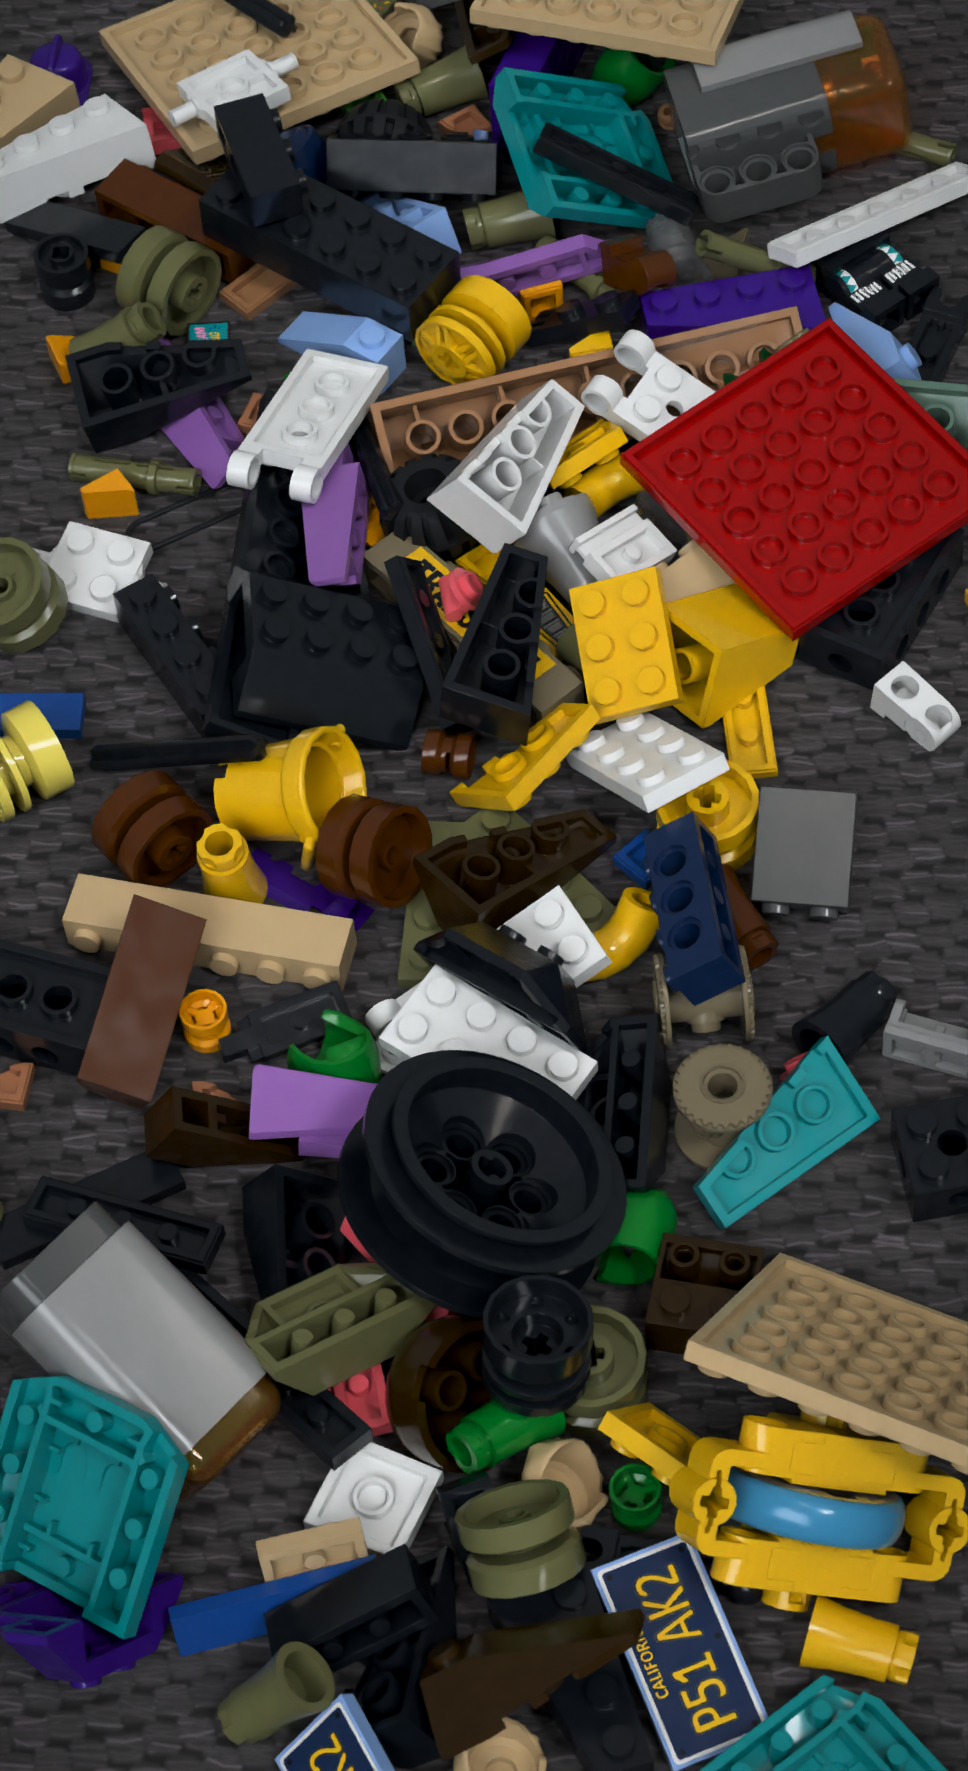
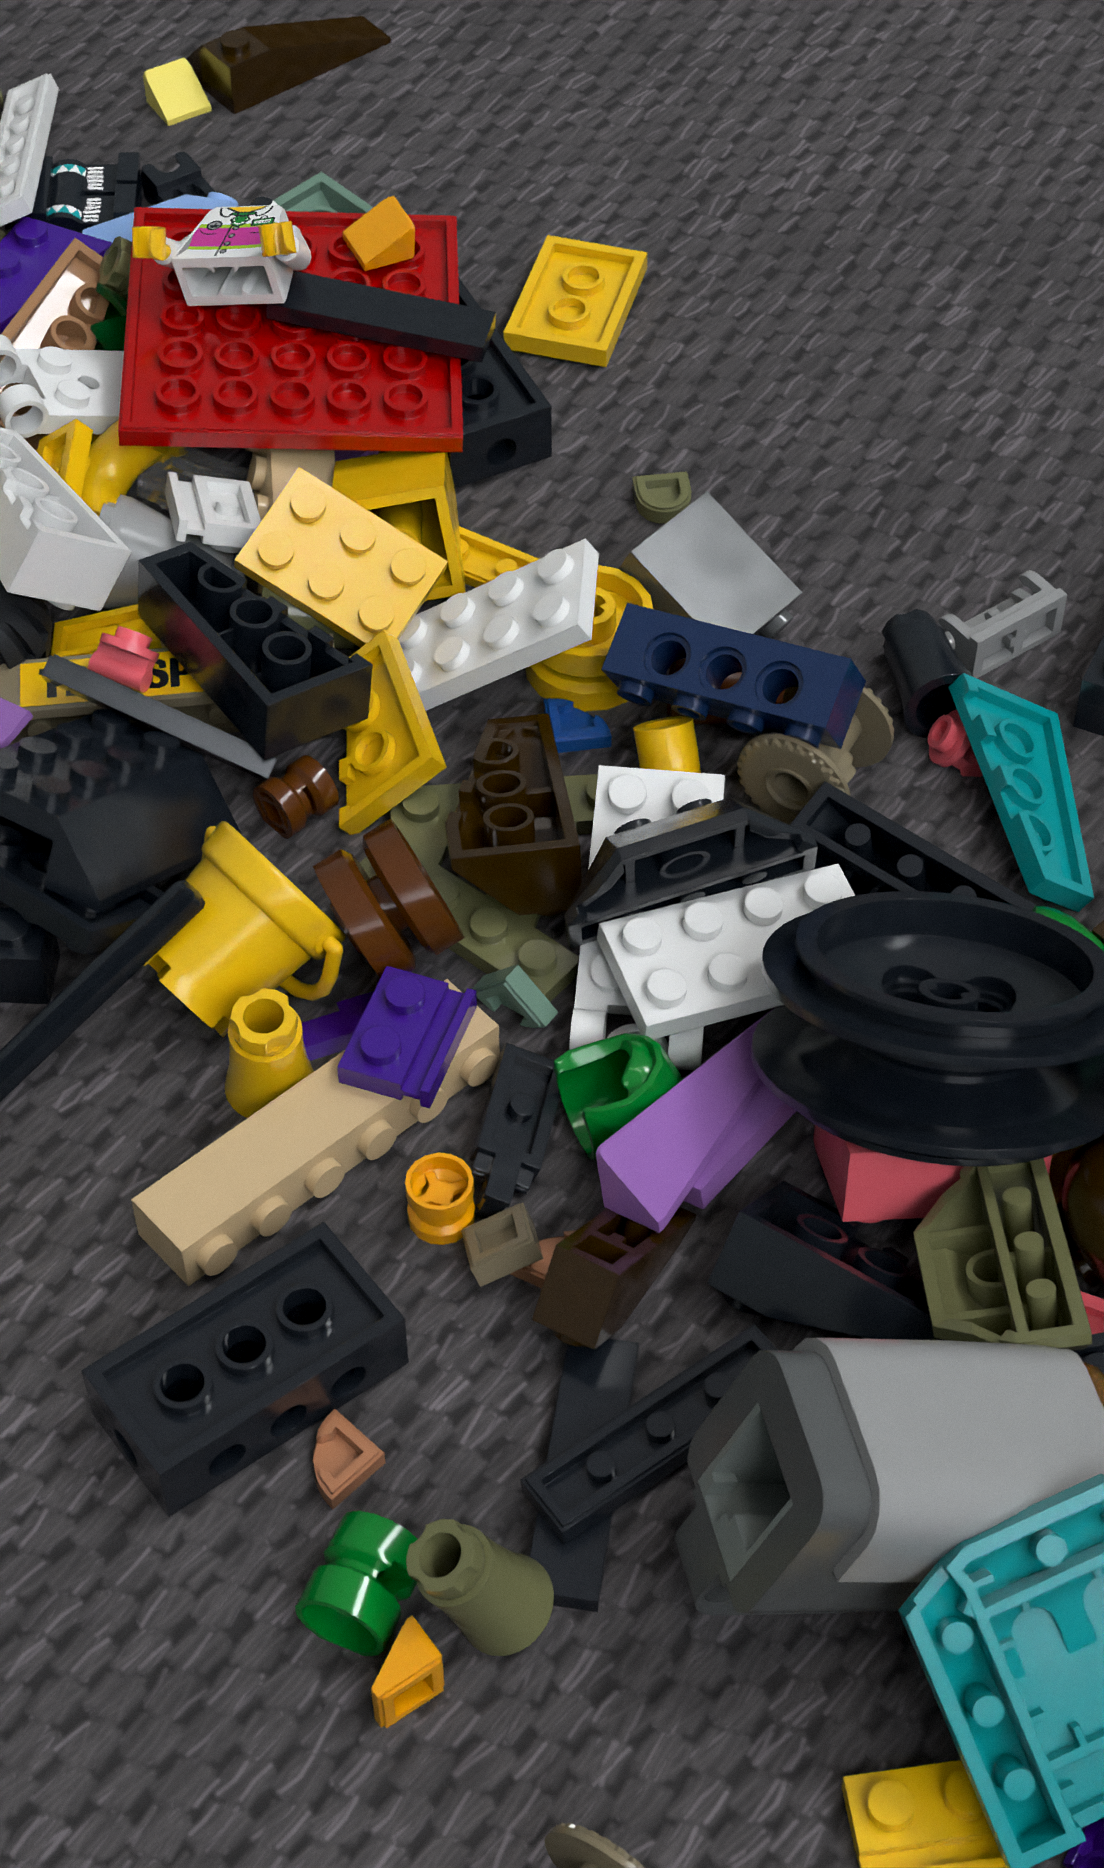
camera: 60 degrees left, 5 degrees down
(140, 1002) = (393, 1223): reddish brown brick -> none
(150, 829) = (138, 1094): reddish brown wheel -> none
(198, 1070) = (501, 1244): none -> dark tan tile
(287, 926) = (407, 1036): none -> dark purple plate
(386, 967) = (517, 992): none -> sand green tile
(717, 1097) = (966, 787): dark tan hose -> none
(808, 401) = (231, 255): none -> white torso
(853, 514) = (386, 316): none -> black tile
(899, 779) = (661, 495): none -> olive tile
(915, 707) = (601, 435): white leg -> none
(926, 463) = (382, 235): none -> light orange slope

